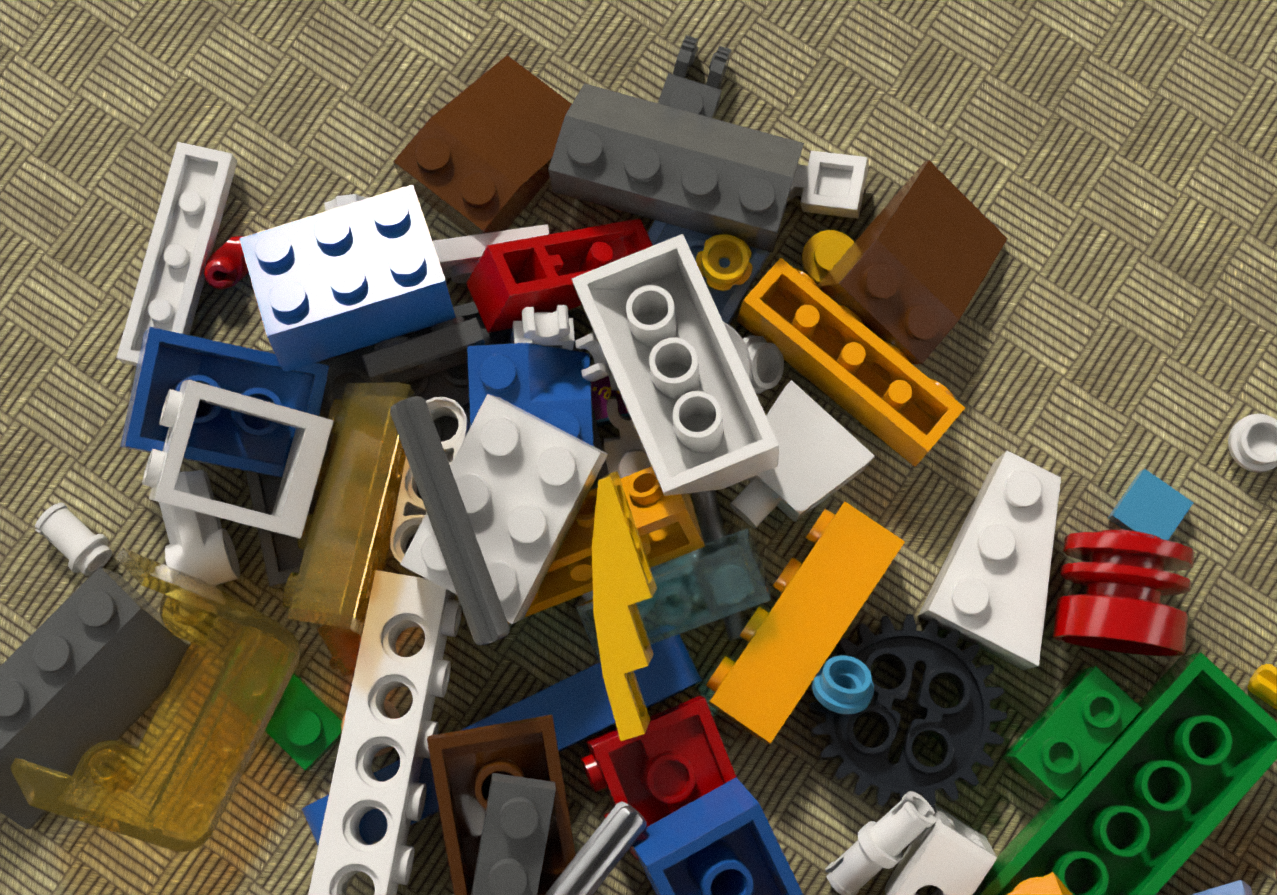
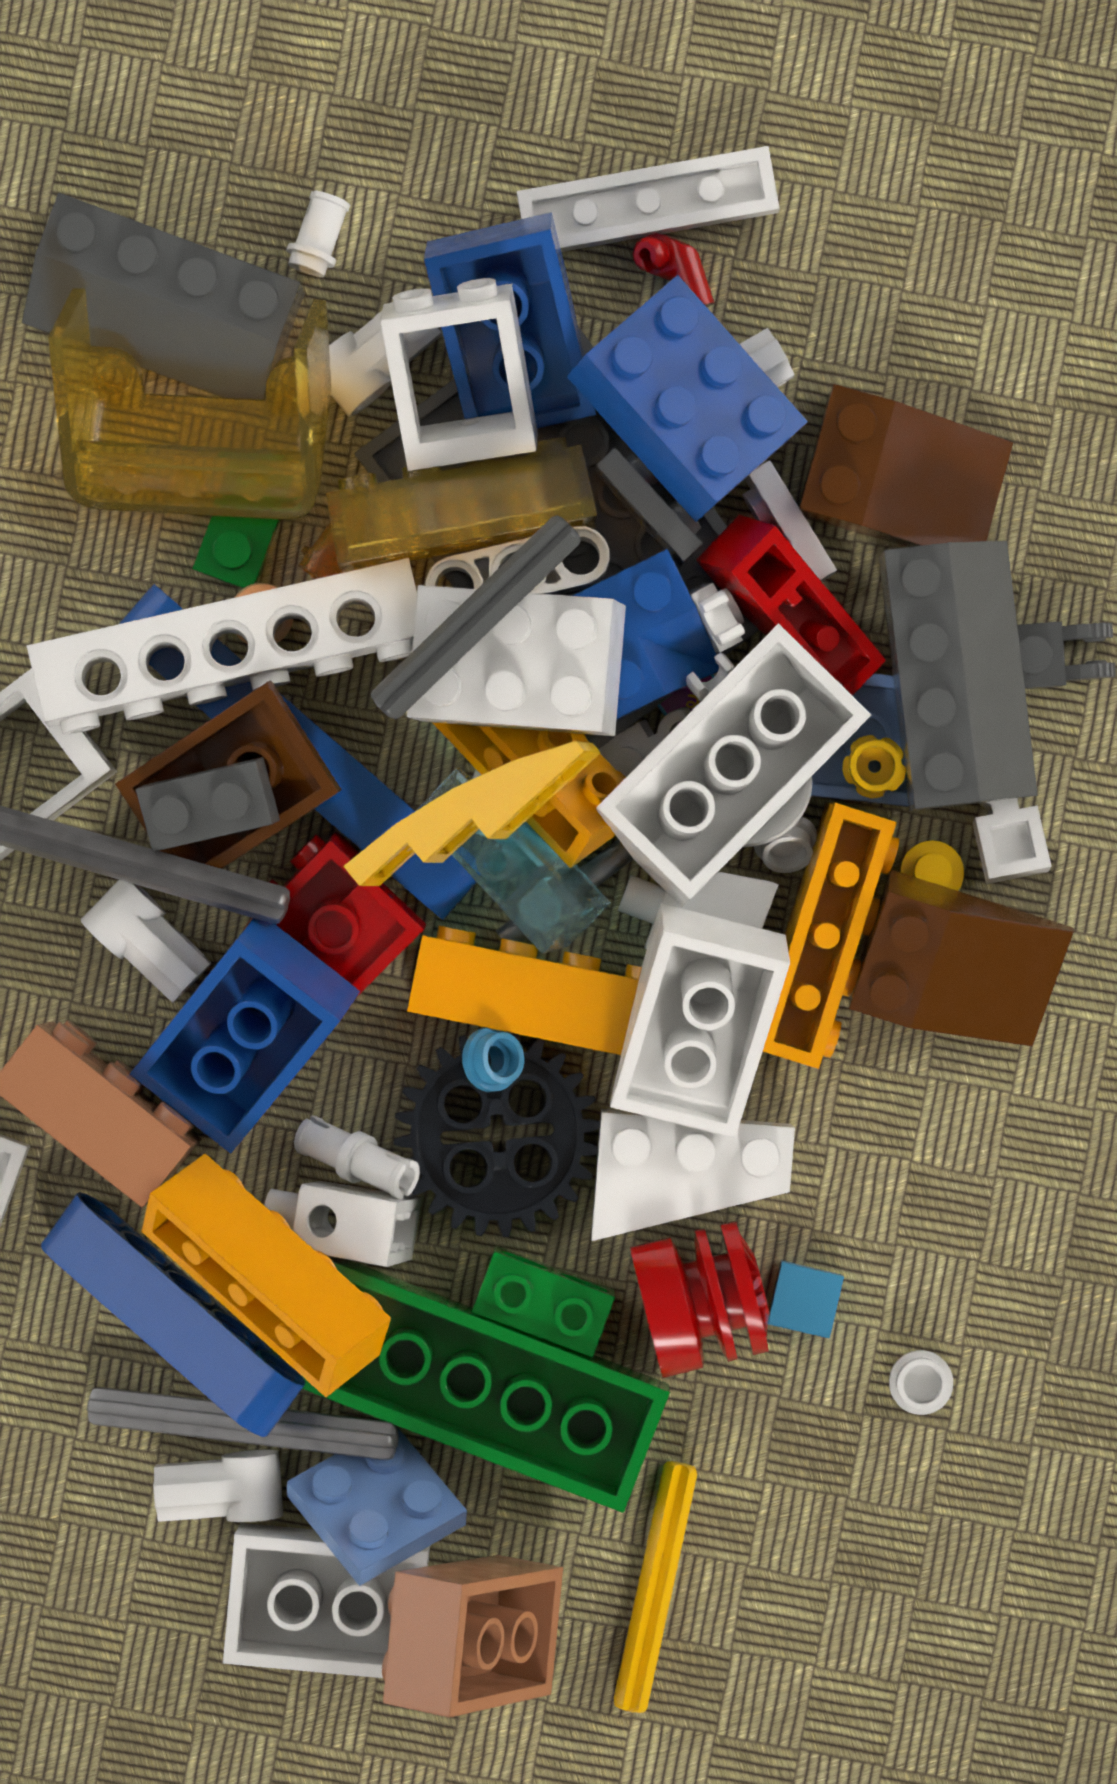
camera: 65 degrees right, 10 degrees up
(884, 487) = (700, 1020): none -> white slope

